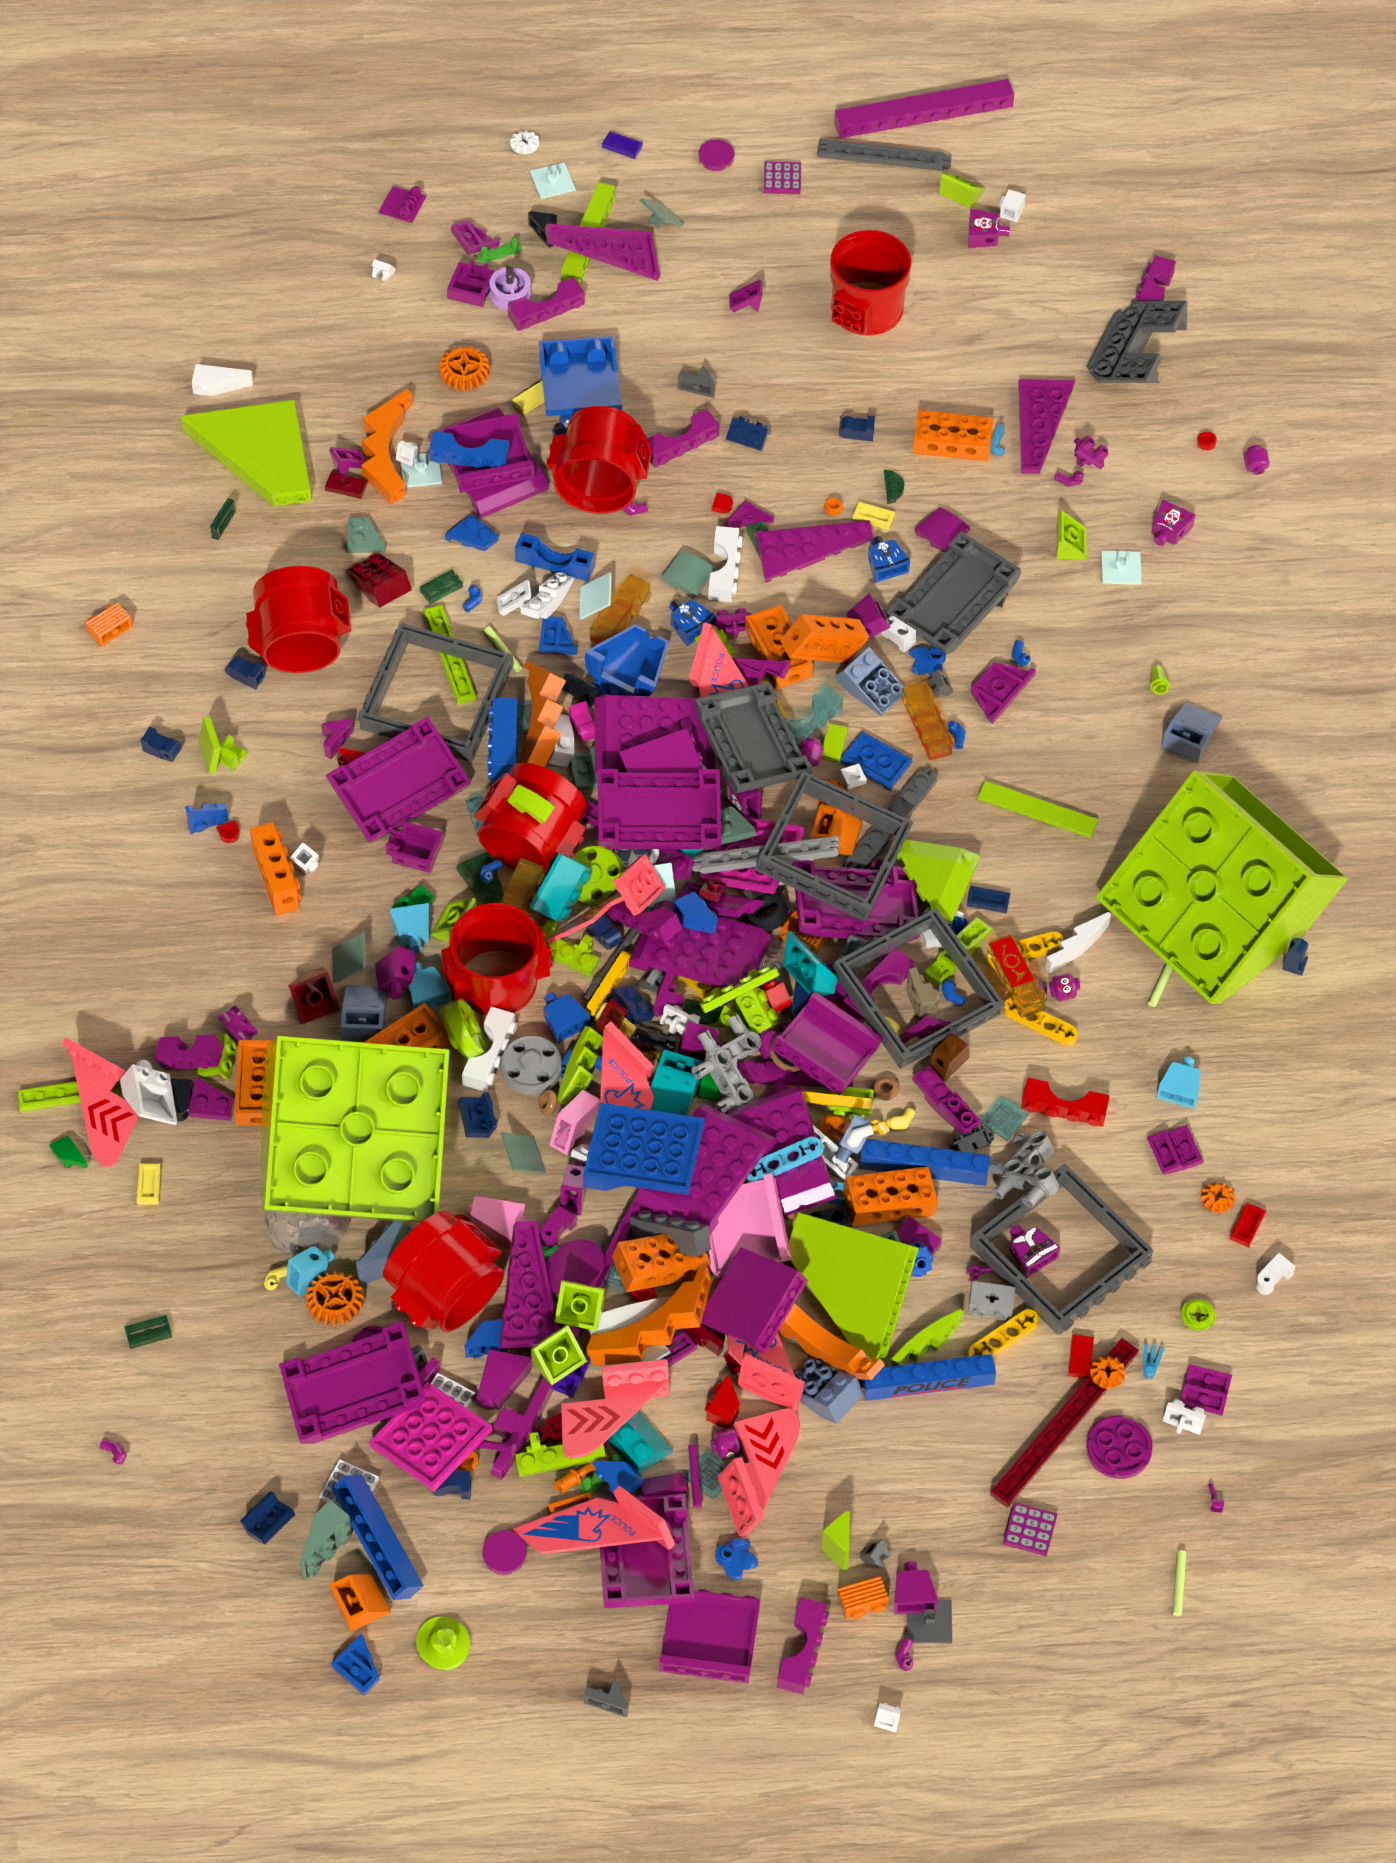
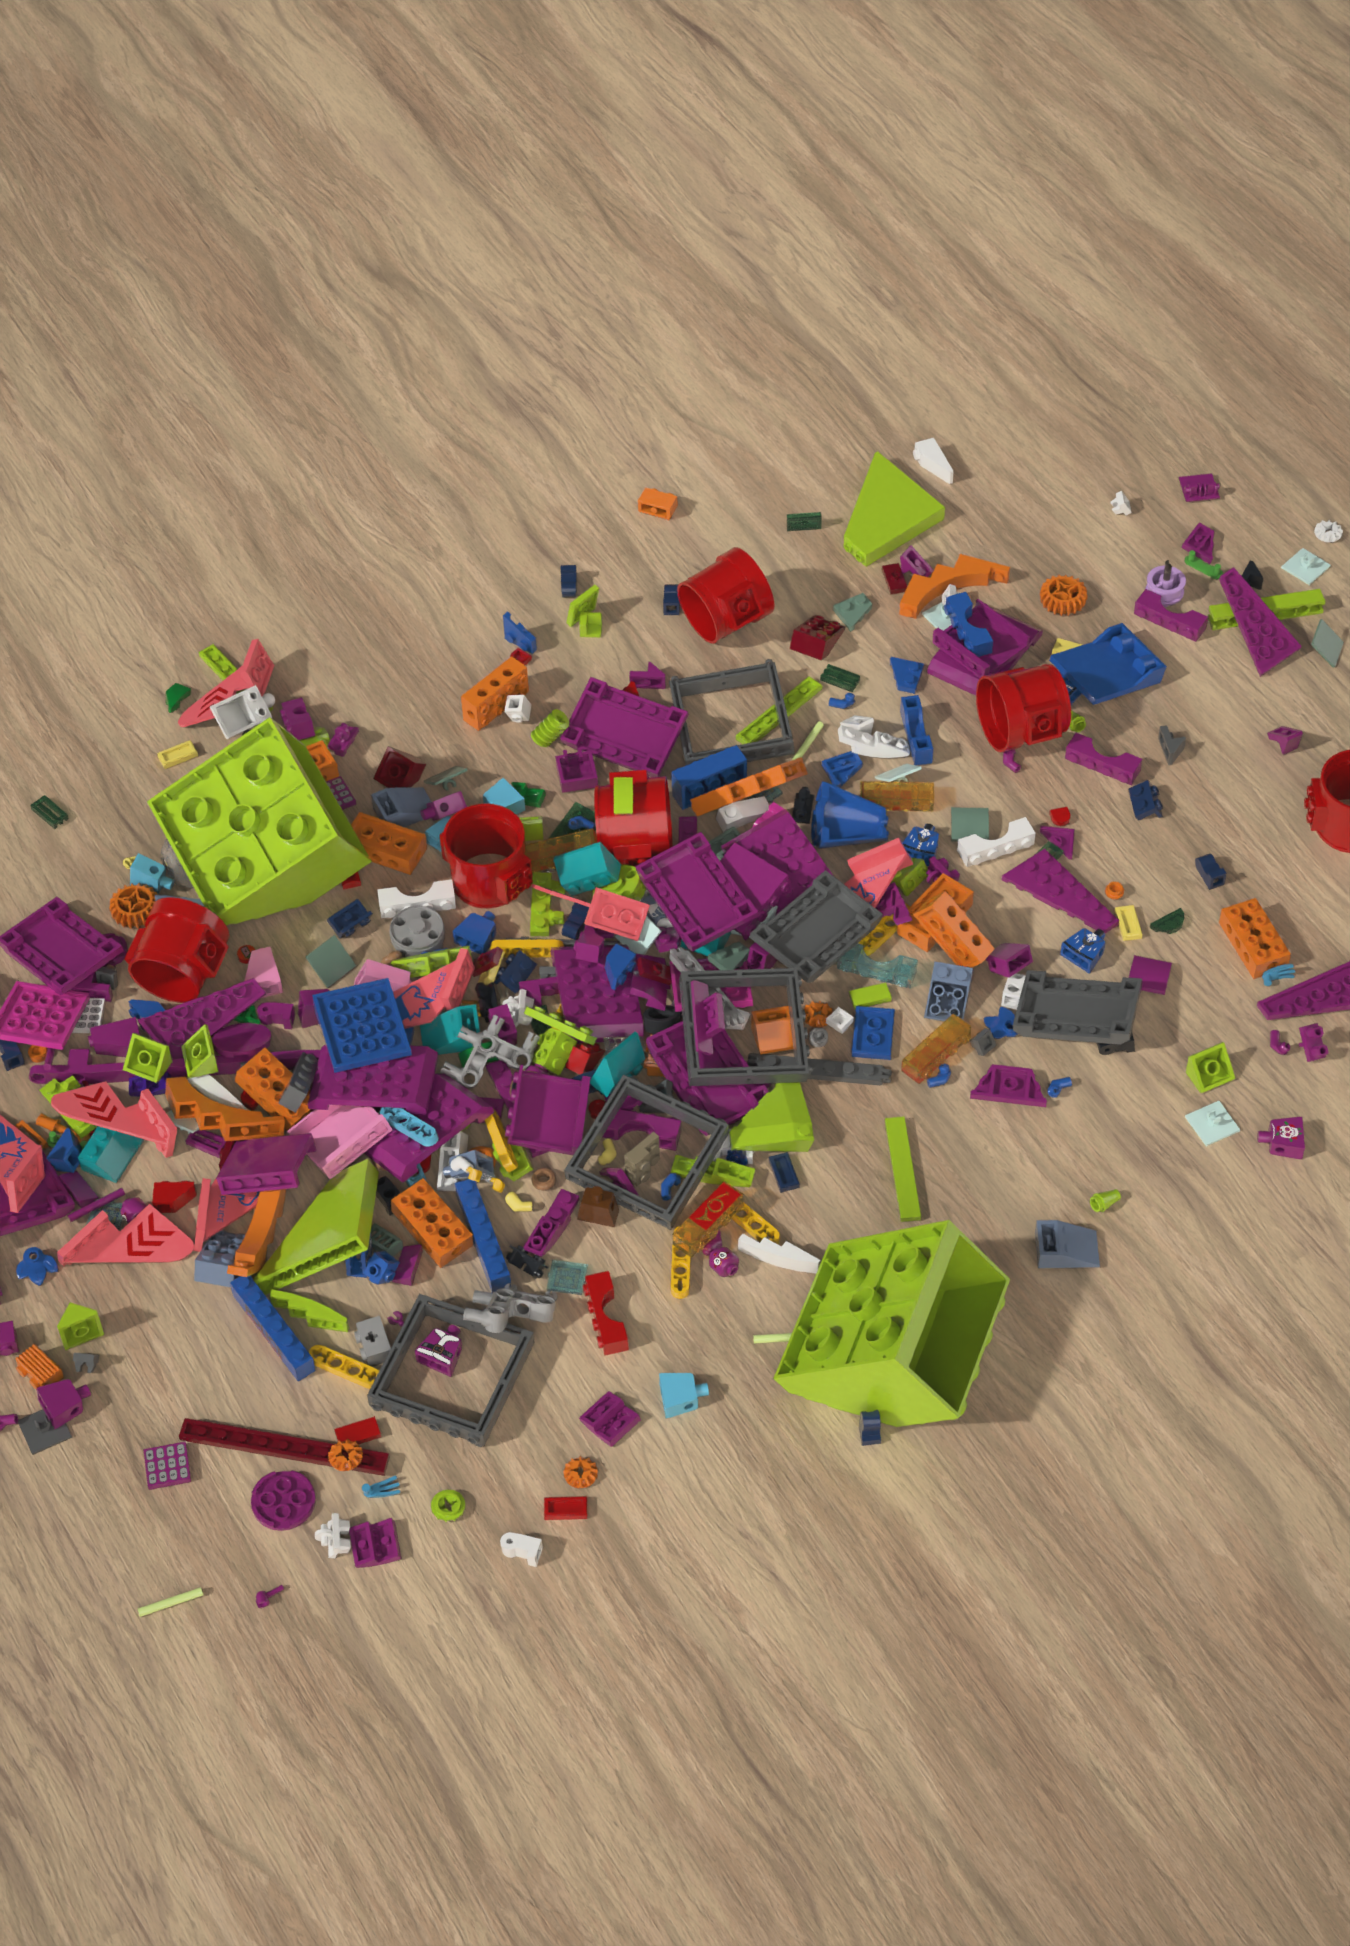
camera: 65 degrees right, 5 degrees down
(355, 843) = (550, 728): none -> lime piece
(464, 1029) = (417, 869): lime piece -> none
(470, 283) = (1149, 558): magenta piece -> none
(812, 749) = (844, 981): magenta head -> none
(819, 860) = (707, 1016): none -> magenta bracket

